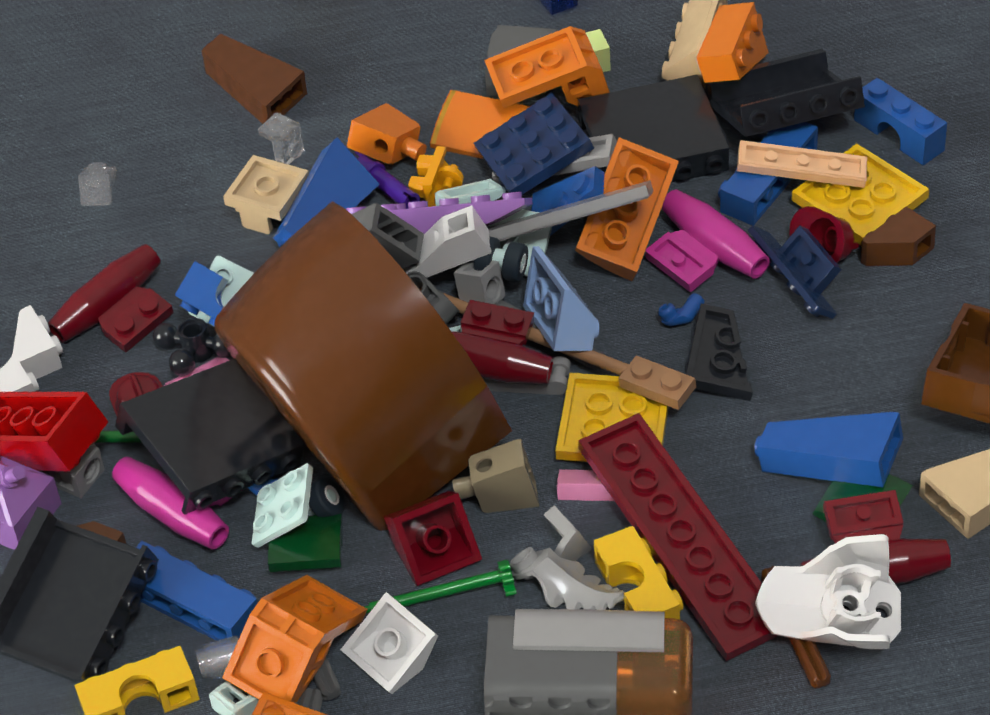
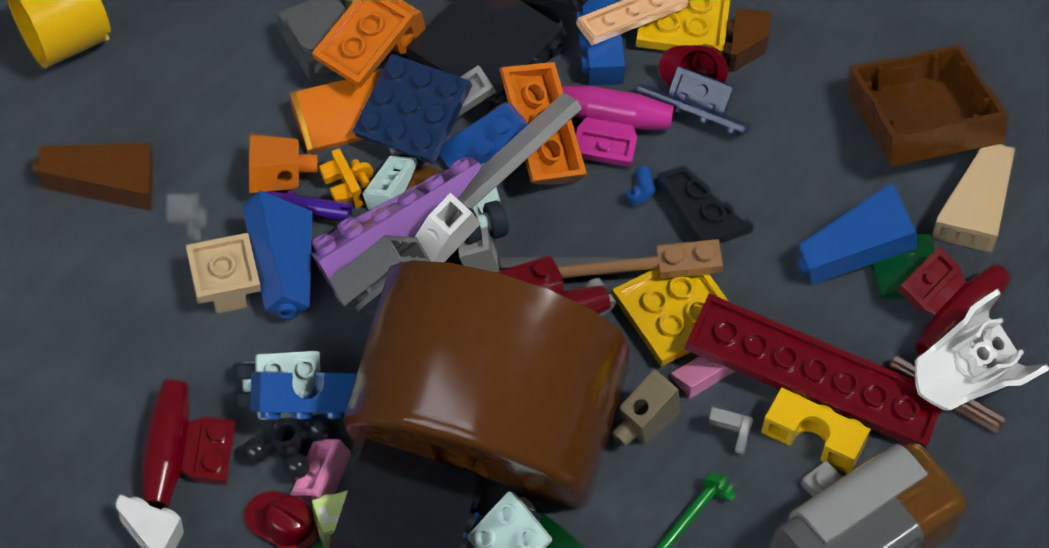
camera: 45 degrees left, 10 degrees up
(96, 184) = (54, 347): clear bracket -> none
(433, 537) = (635, 488): dark red slope -> none
(558, 307) = (568, 238): light blue slope -> none
(564, 581) = (765, 463): light grey plant -> none

